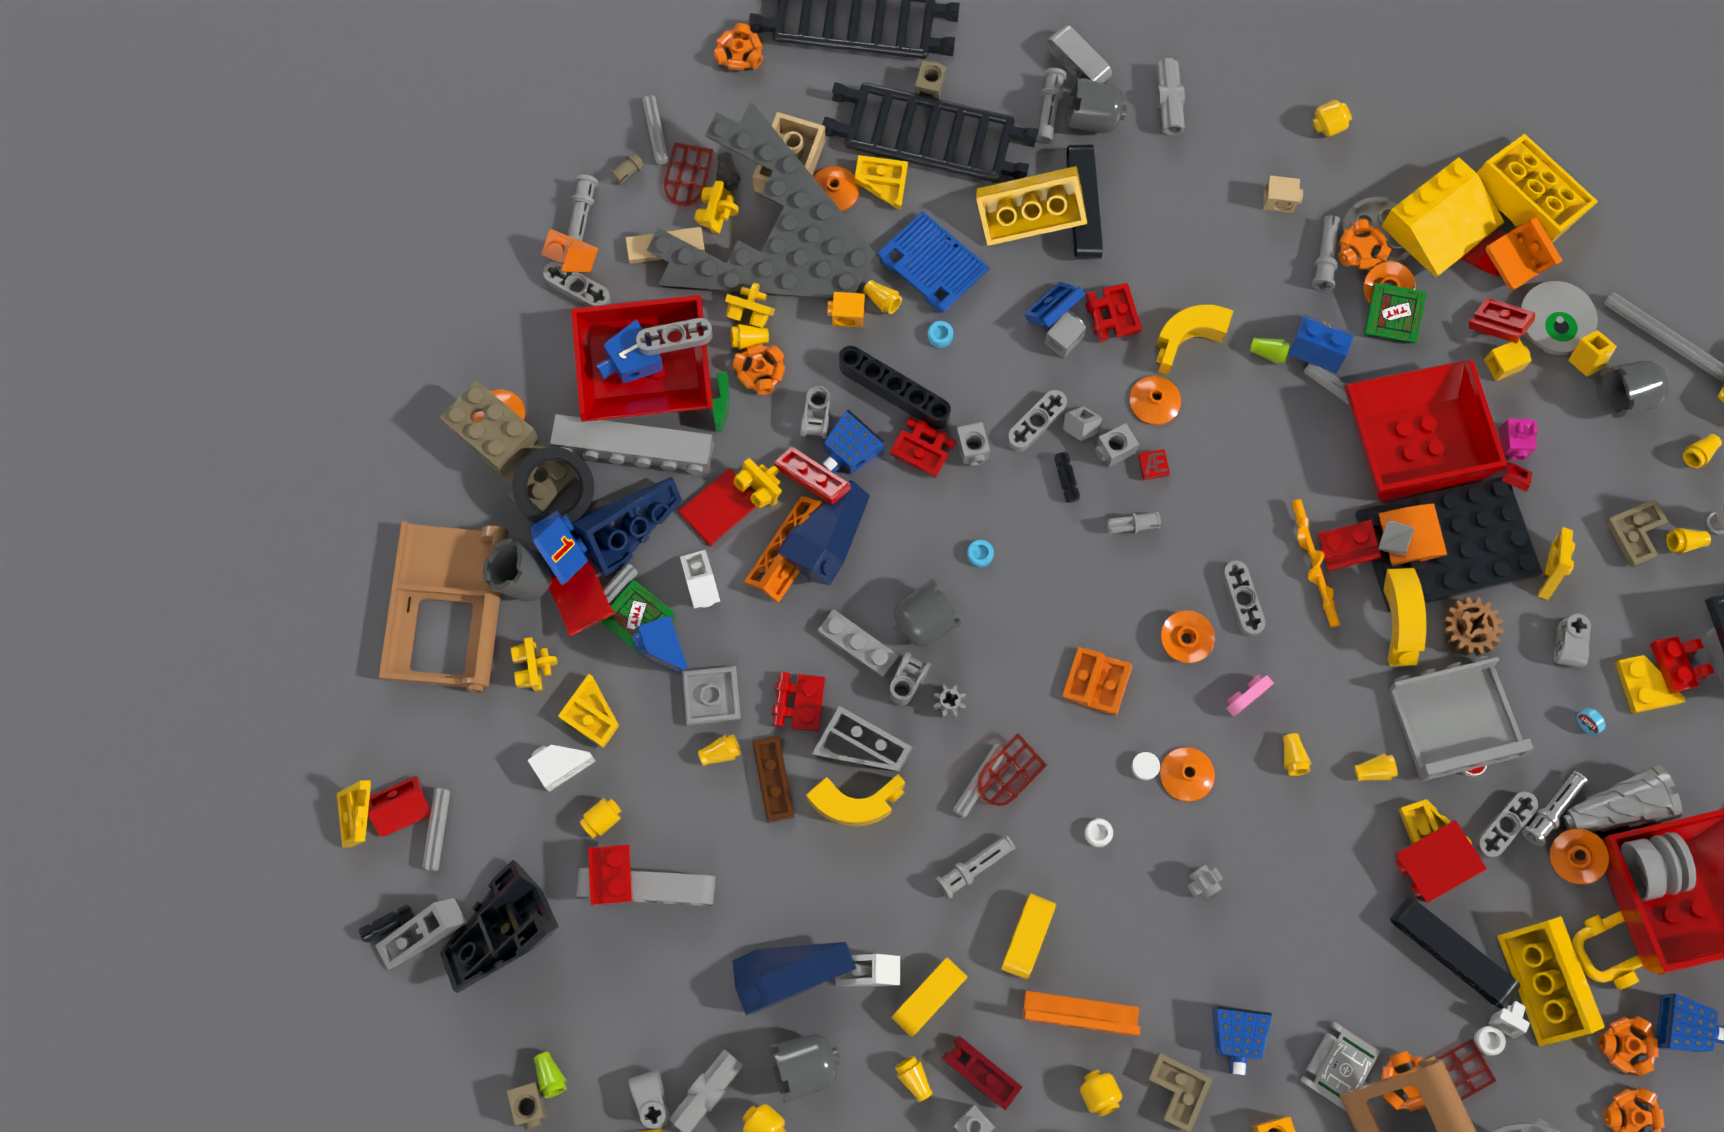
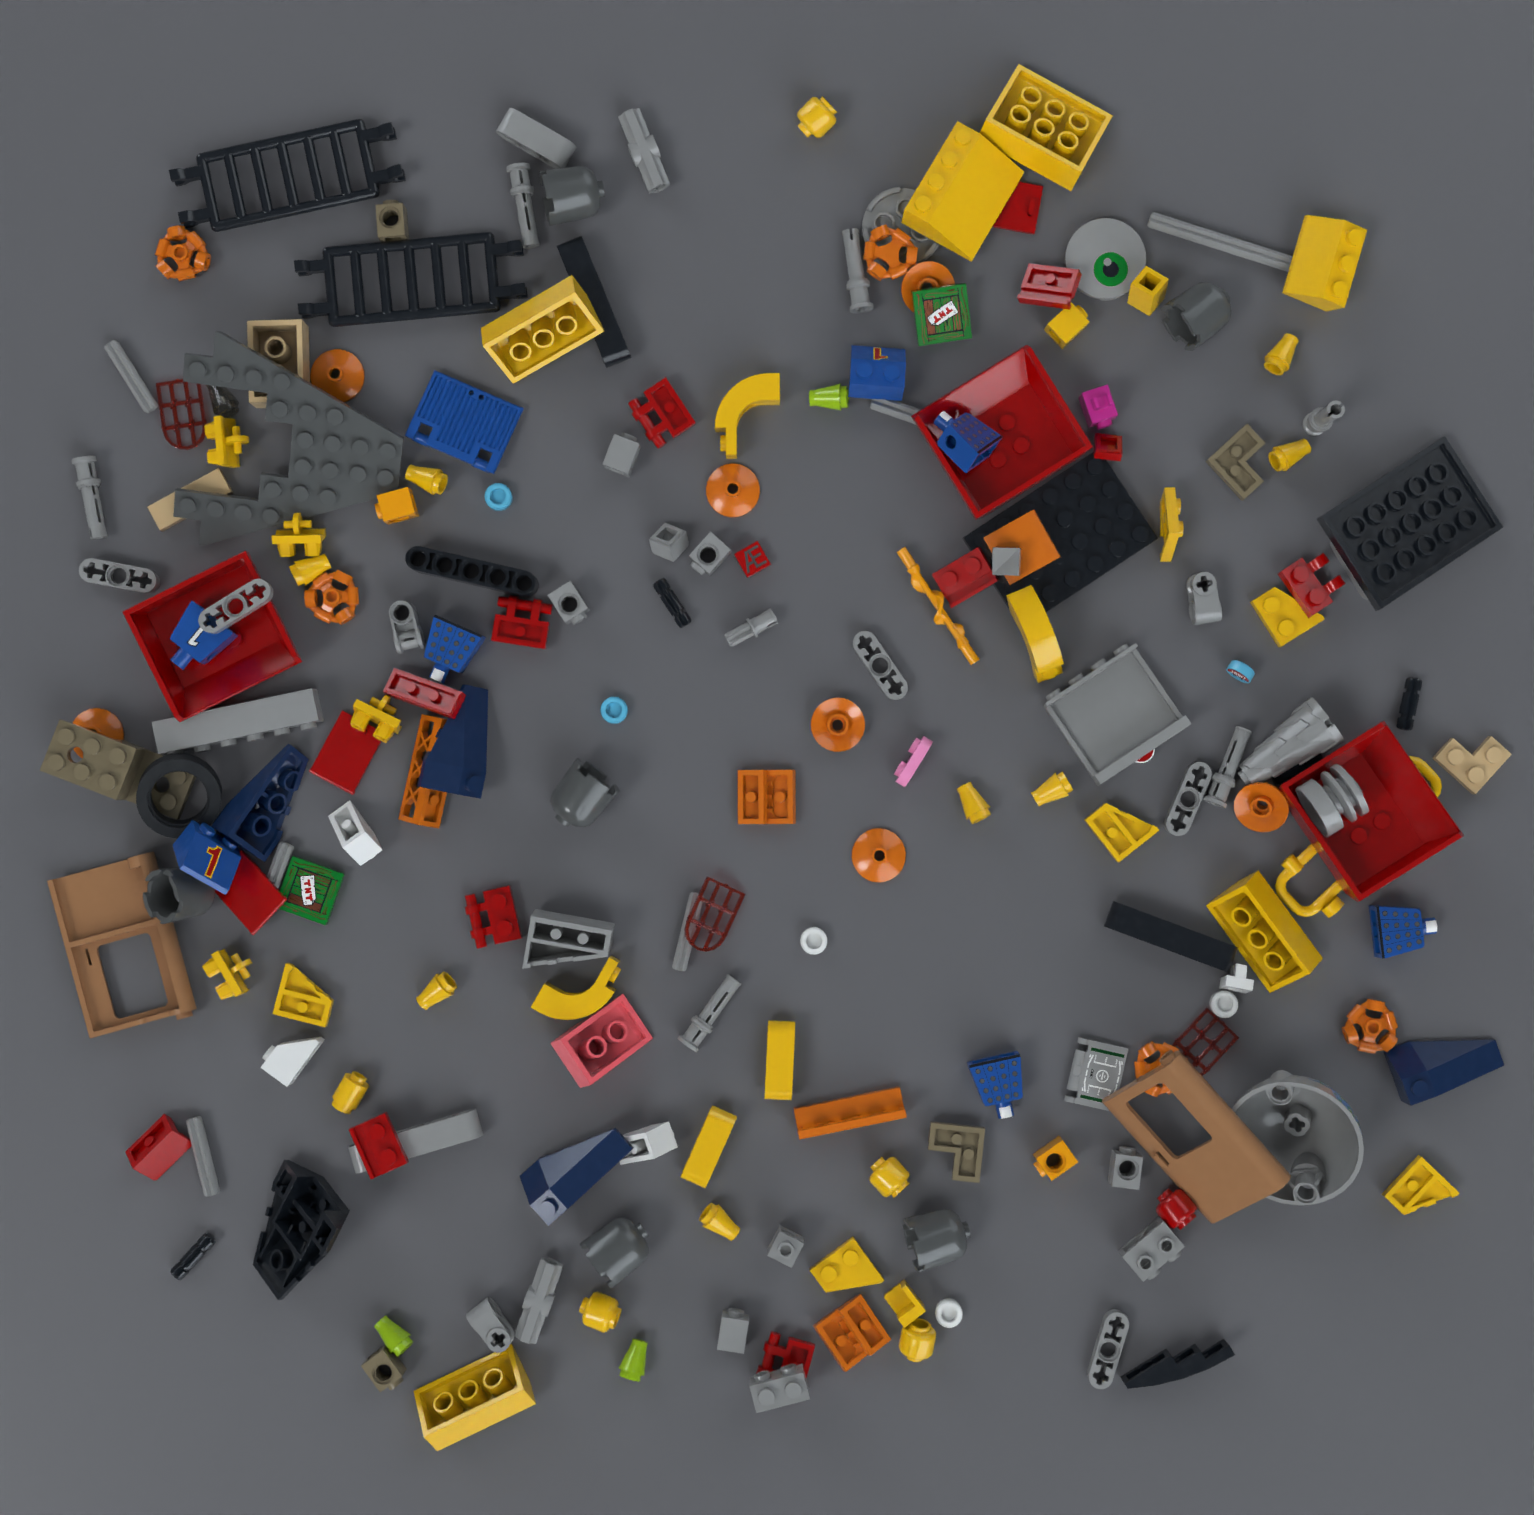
camera: 20 degrees left, 15 degrees up
(353, 812) = (120, 1171): yellow wing -> none
(421, 932) = (228, 1254): light grey slope -> none
(573, 253) = (102, 545): orange slope -> none
(627, 168) = (119, 430): dark tan pin -> none
(660, 644) = (340, 916): blue slope -> none
(711, 696) = (409, 940): light grey tile -> none
(721, 404) = (310, 654): green slope -> none
(773, 779) = (496, 998): reddish brown tile -> none
(858, 644) = (528, 841): light grey plate -> none
(860, 854) = (601, 1041): none -> coral slope
(882, 178) = (382, 348): yellow wing -> none
(909, 675) = (587, 857): light grey piece -> none
(946, 708) = (625, 868): light grey gear -> none
(983, 1073) = (778, 1196): dark red plate -> none
(1054, 304) = (600, 427): blue plate -> none
(1054, 412) = (608, 569): light grey beam -> none
(1145, 766) = (837, 862): white tile -> none
(1205, 882) = (924, 954): light grey gear -> none
(1282, 194) = (791, 222): tan brick -> none
(1389, 420) = (966, 439): none -> blue torso
(1439, 862) = (1134, 860): red panel -> none
(1485, 627) = (1116, 619): medium nougat gear -> none
(1523, 253) = (1050, 206): orange bracket -> none
(1630, 1045) = (1350, 964): orange piece -> none

